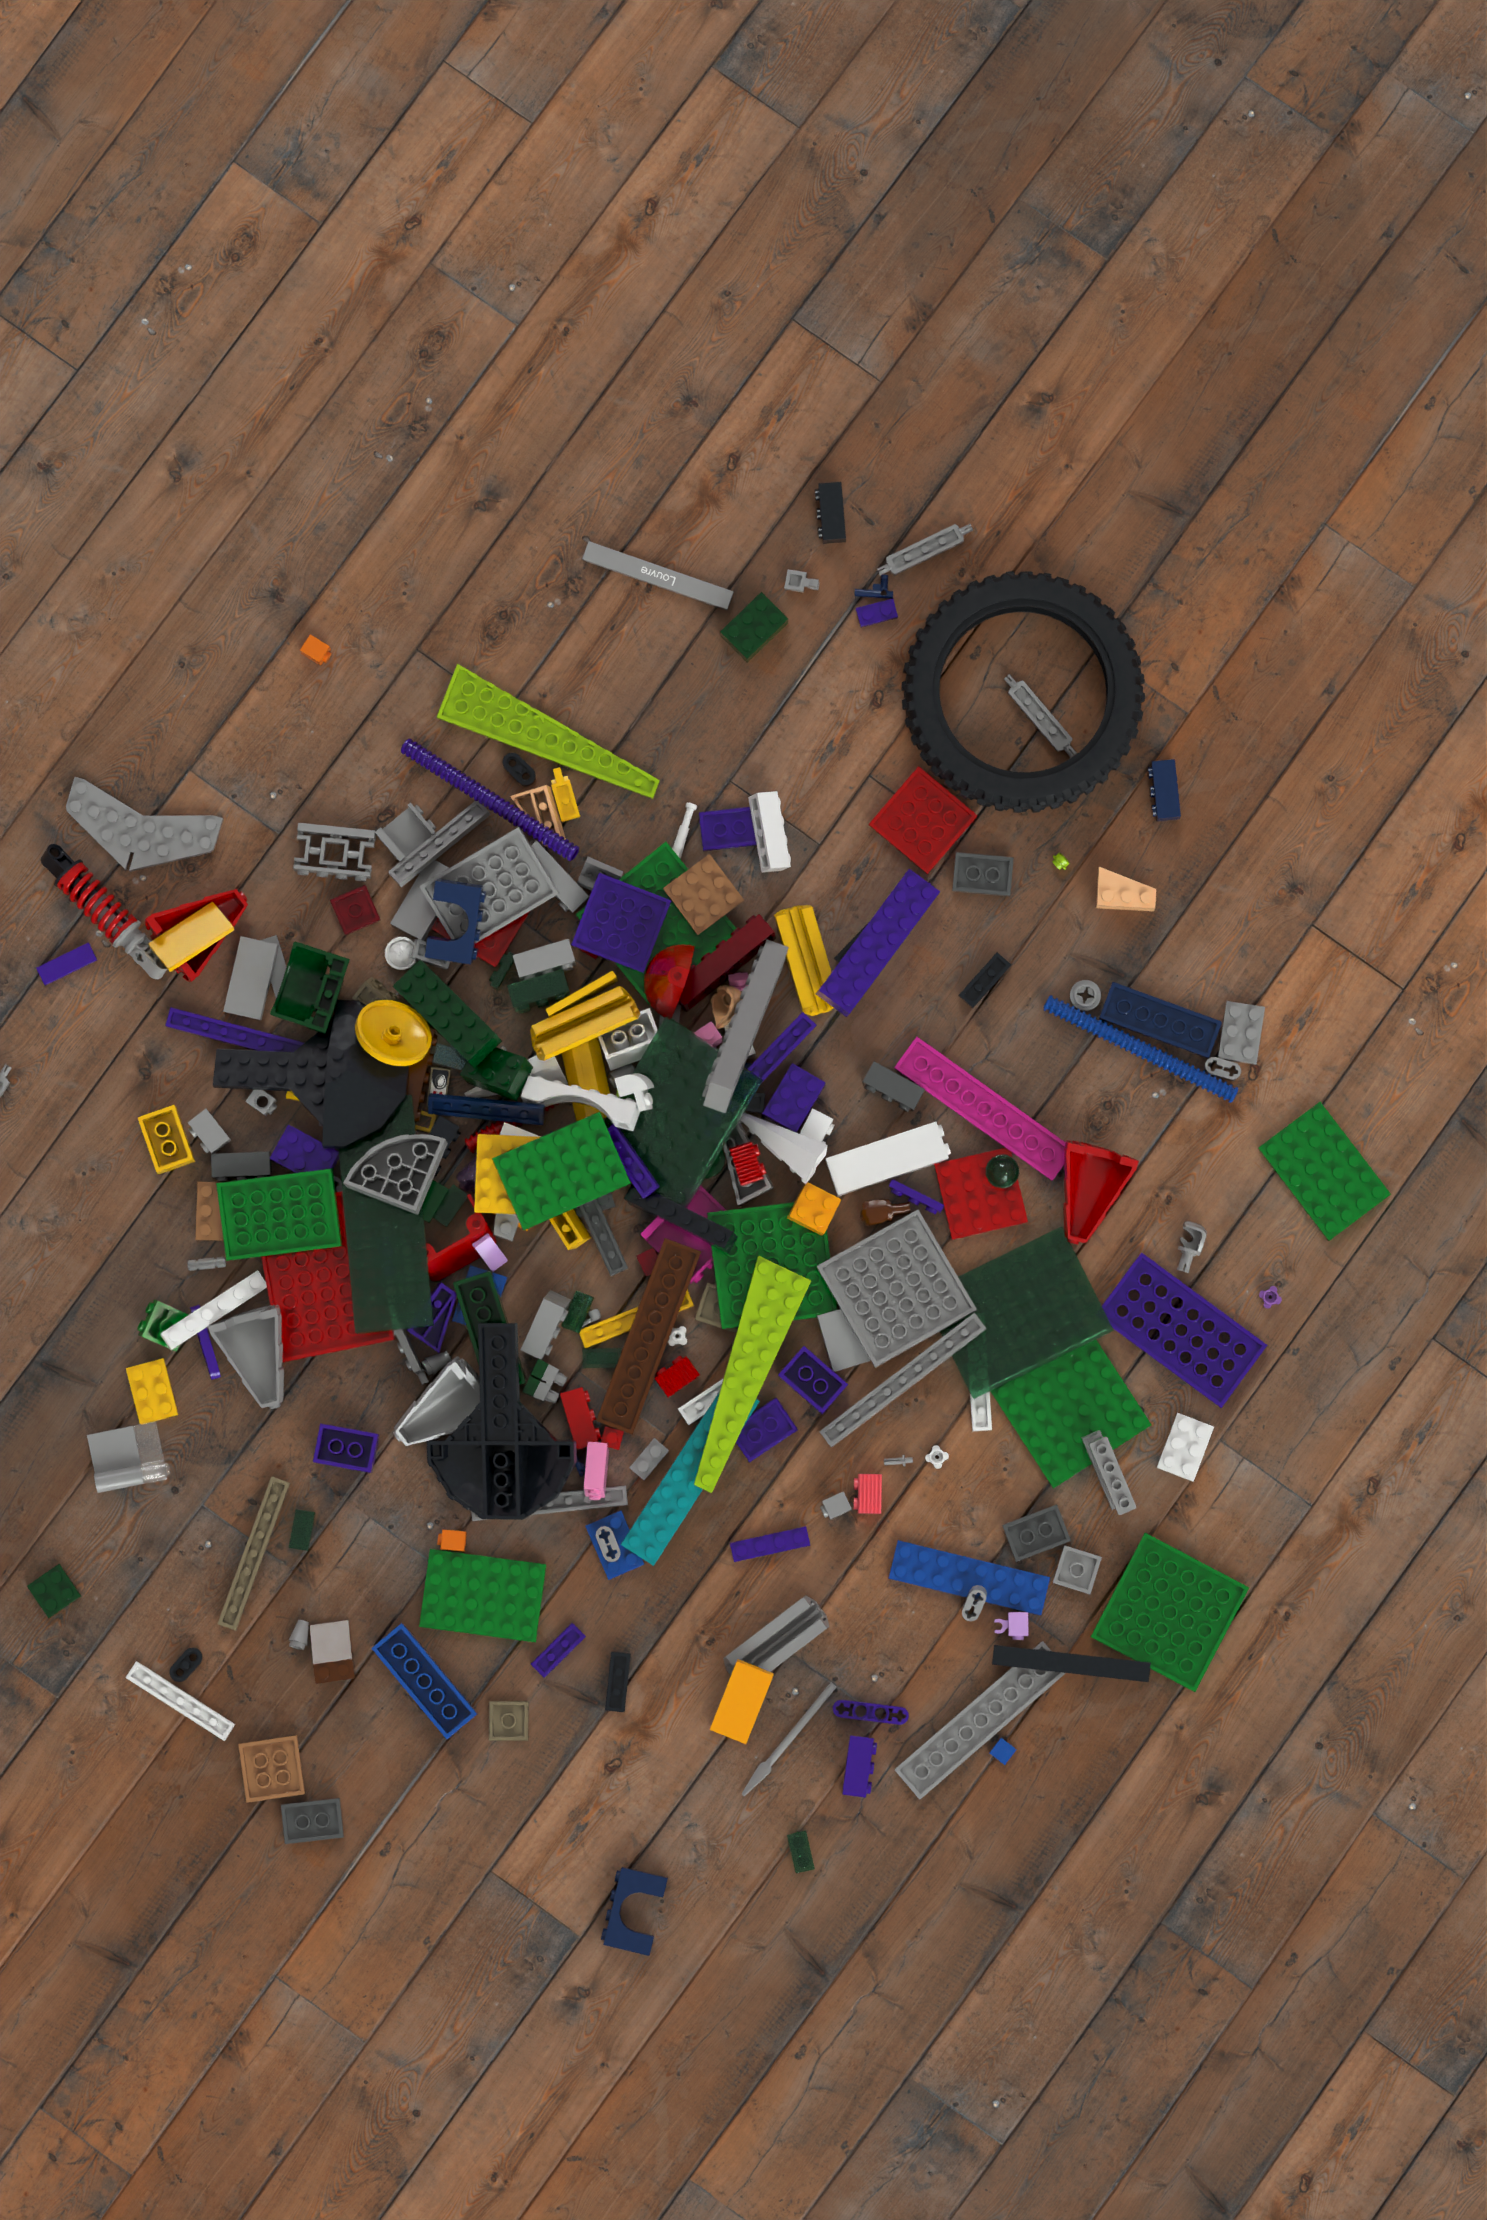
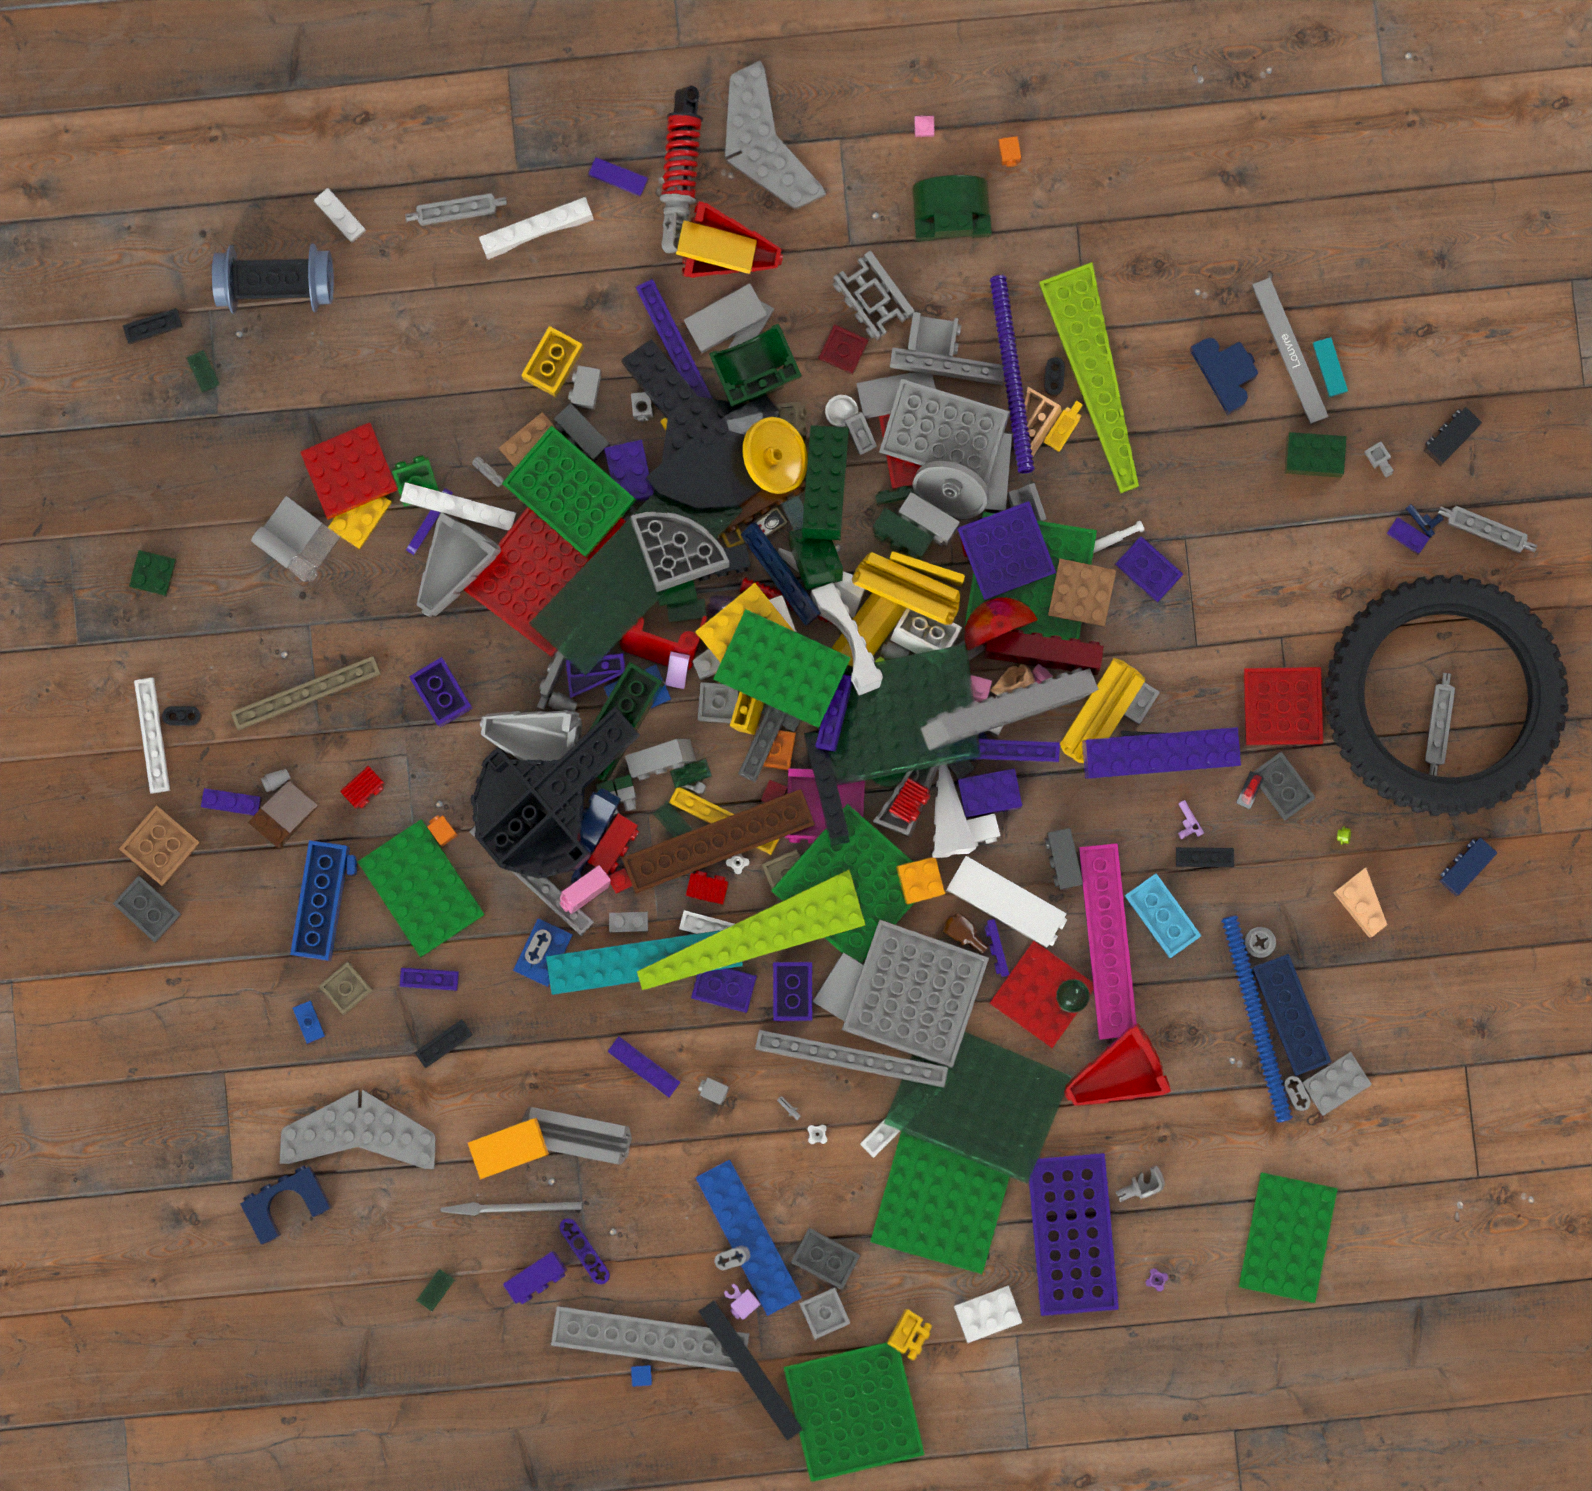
camera: 55 degrees right, 0 degrees up
(44, 1075) = (523, 231): none -> white arch
(110, 1369) = (348, 470): none -> red plate
(237, 697) = (924, 126): none -> bright pink plate
(286, 1684) = (230, 802): none -> dark purple plate
(302, 1530) = (353, 713): clear green plate -> none
(319, 729) = (951, 203): none -> dark green piece
(366, 1572) = (363, 787): none -> red brick
(418, 1633) = (351, 865): none -> blue tile
(469, 898) = (924, 423): dark blue arch -> none
(509, 1771) = (308, 1022): none -> blue plate
(537, 922) = (951, 489): none -> light grey dish
(541, 1244) = (716, 703): none -> light grey plate
(549, 1410) = (597, 817): none -> dark blue brick
(615, 1812) = (347, 1126): none -> light grey wing
(621, 1227) = (781, 751): none -> orange tile
(631, 637) = (1225, 371): none -> dark blue brick
(638, 1085) = (895, 669): white brick -> none
(697, 557) = (1330, 367): none -> teal tile
(769, 831) = (1173, 600): white brick -> none
(827, 924) = (1141, 703): none -> light grey plate
(869, 1493) = (745, 1107): coral brick -> none
(948, 968) = (1189, 822): none -> lavender hose
(964, 901) = (1250, 790): none -> sticker
(1001, 1050) = (1162, 915): none -> medium azure plate
(1108, 1472) = (917, 1273): light grey fence -> none
(1145, 1522) = (905, 1331): none -> yellow plate

